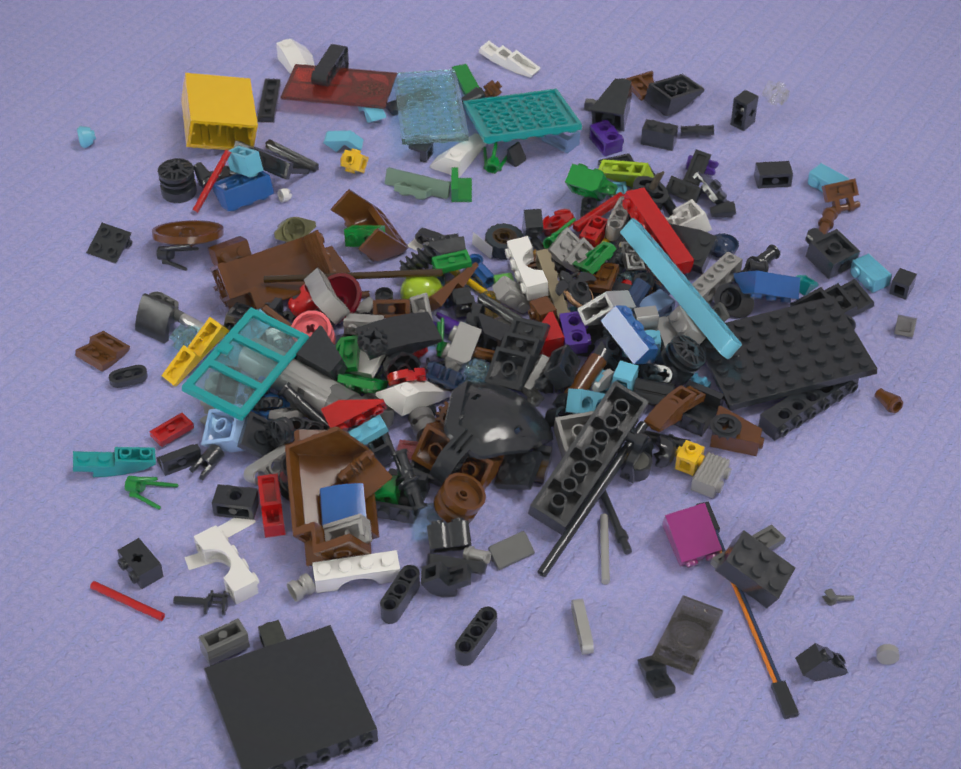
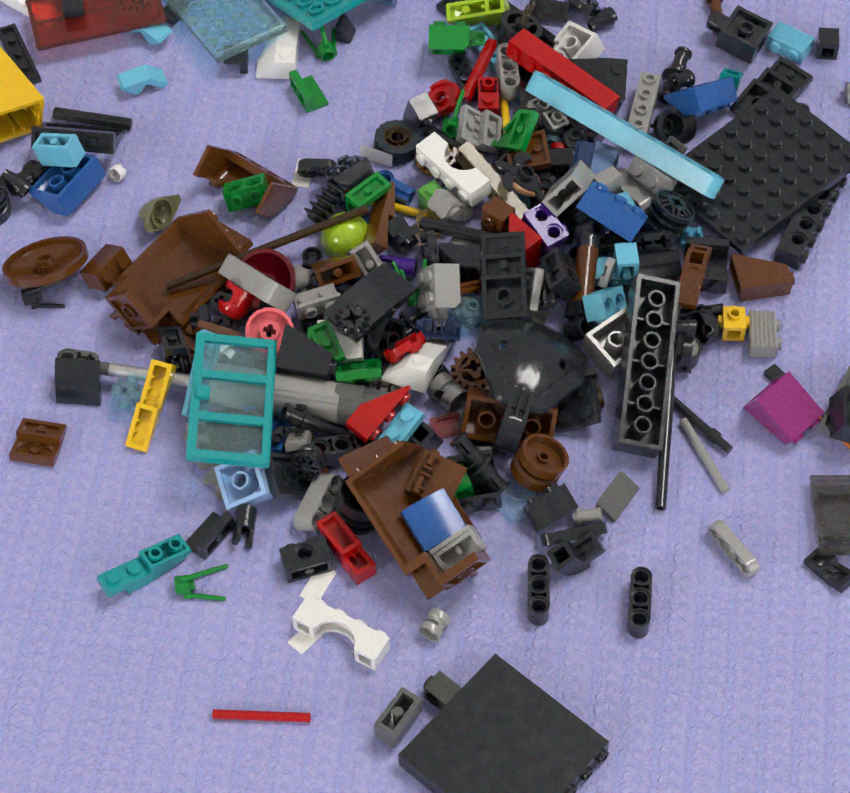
camera: 25 degrees left, 10 degrees up
(128, 376) = (88, 462): black plate -> none
(139, 563) = (250, 670): black brick -> none
(172, 429) = (180, 504): red plate -> none
(206, 602) = (342, 682): black piece -> none
(211, 181) = (32, 188): red bar -> none
(333, 573) = (496, 573): white arch -> none
(354, 161) = (179, 99): yellow brick -> none
(416, 185) = (259, 106): sand green bracket -> none
(720, 421) = (761, 273): black gear -> none
(726, 244) = (635, 60): dark blue hat -> none

